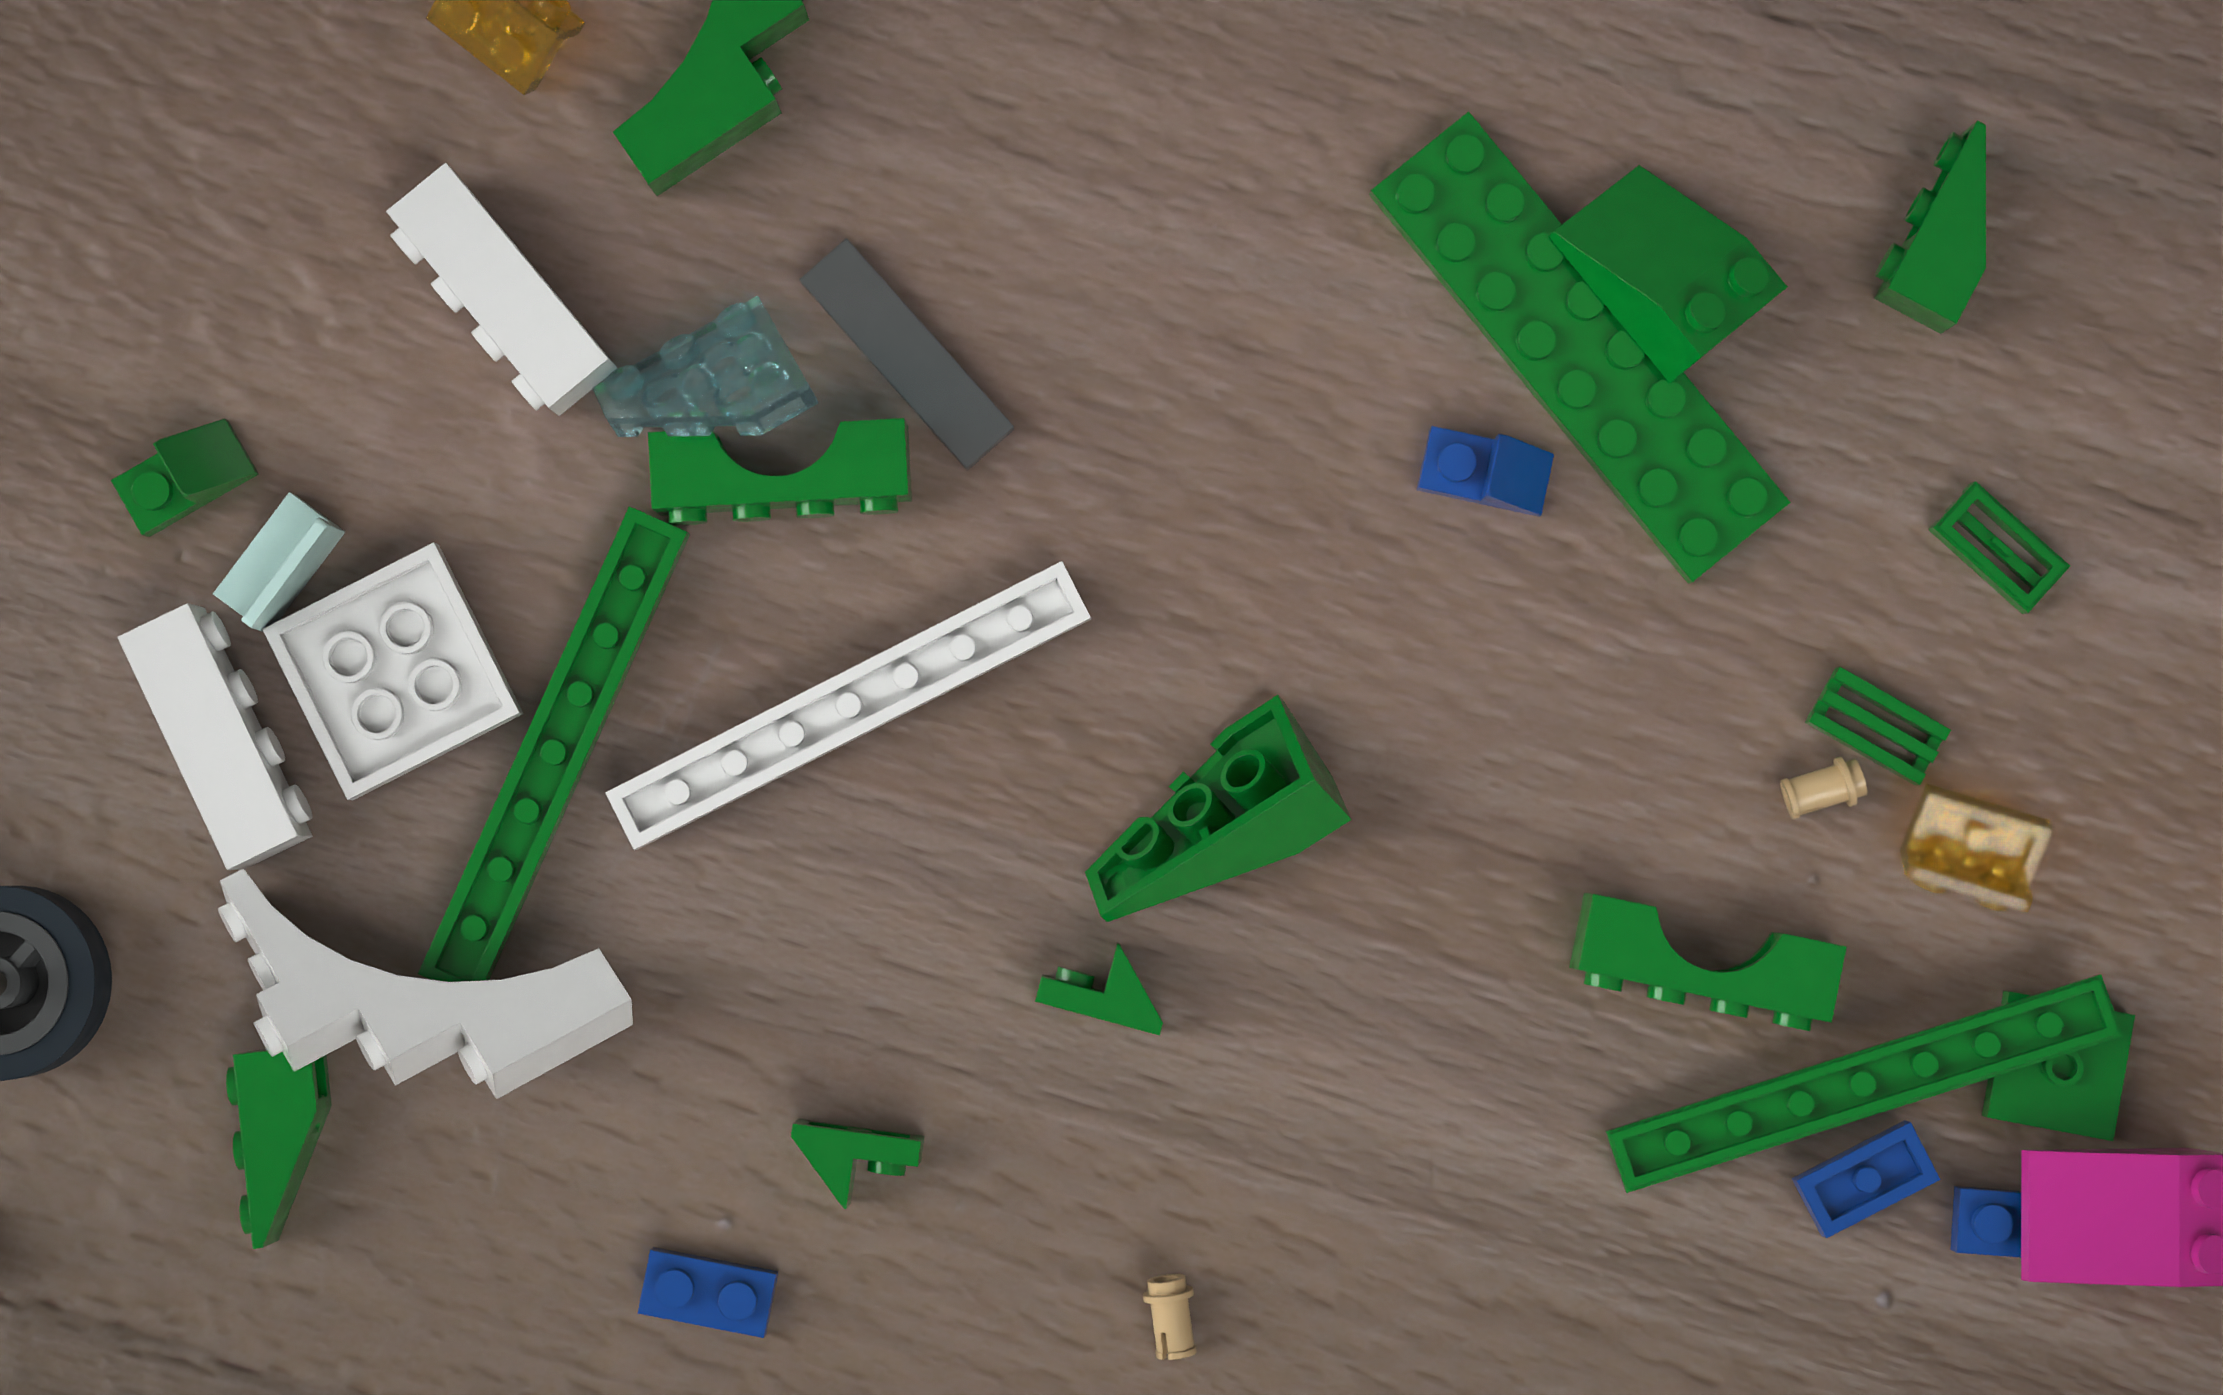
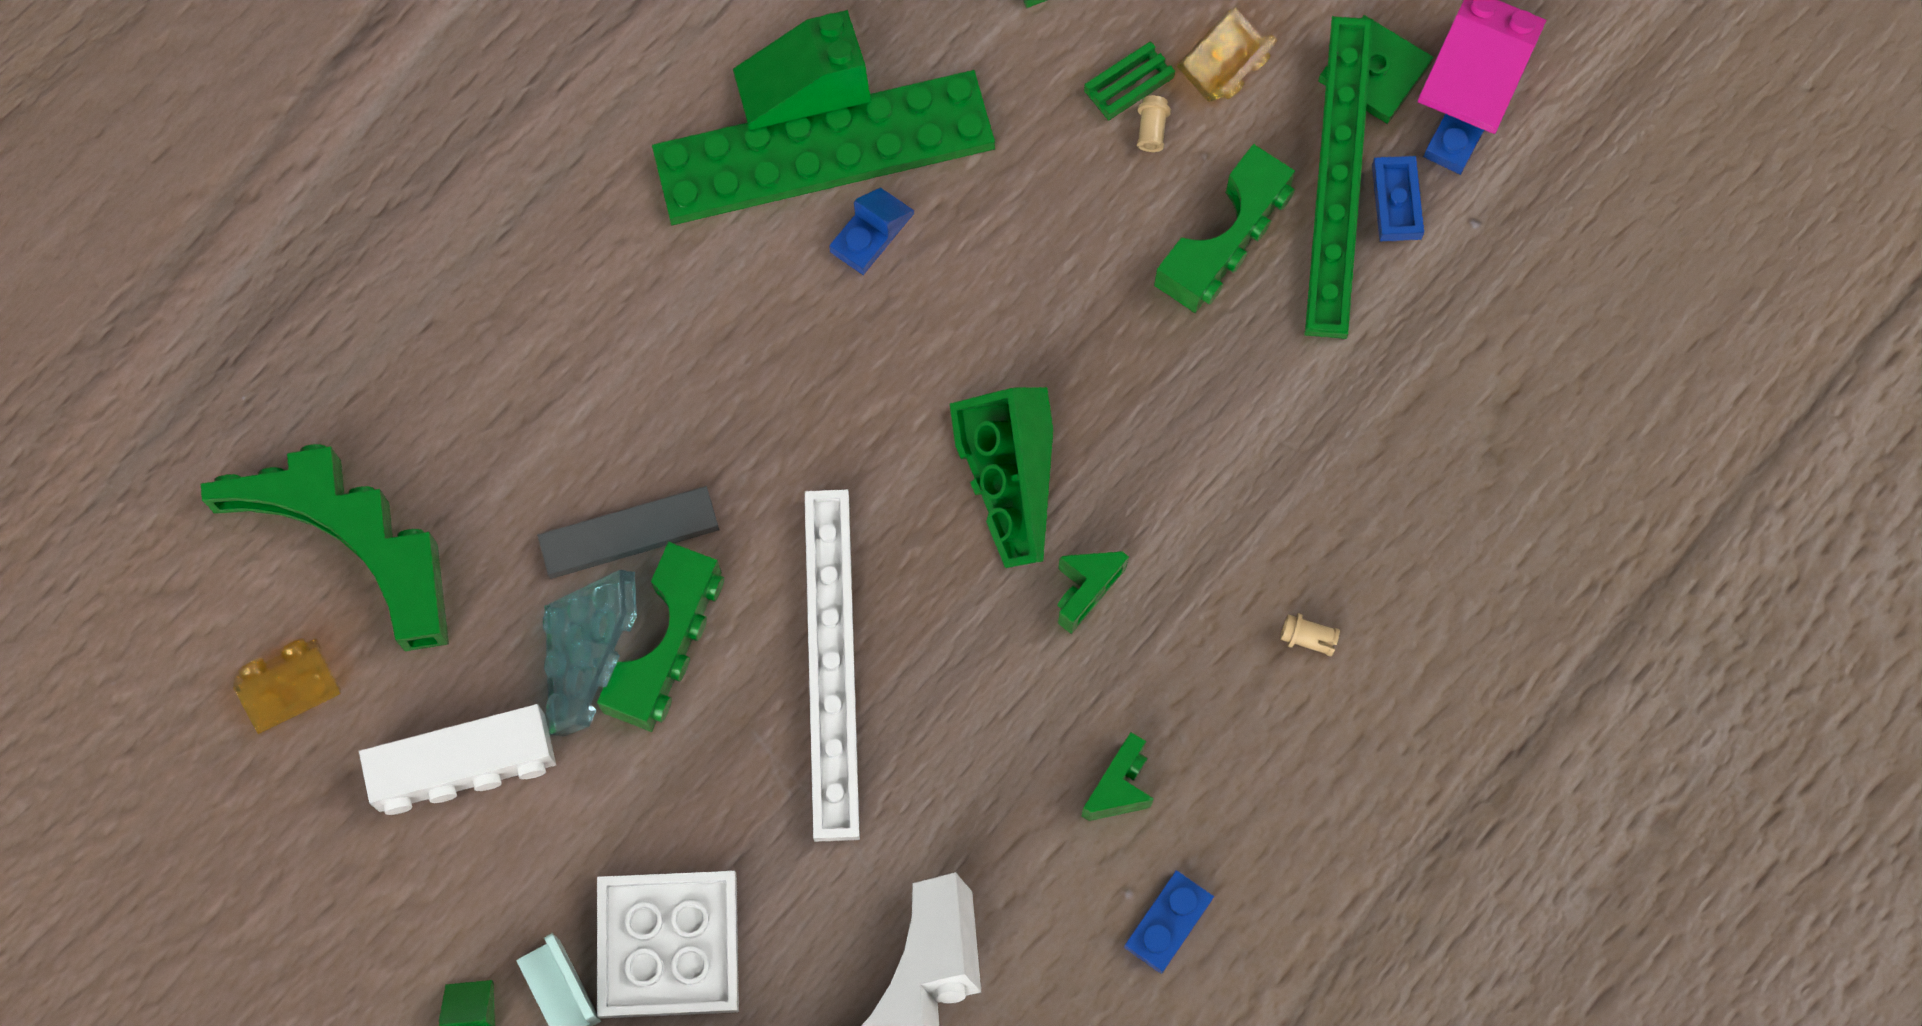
camera: 65 degrees left, 15 degrees down
(555, 750) = (769, 860): green plate -> none

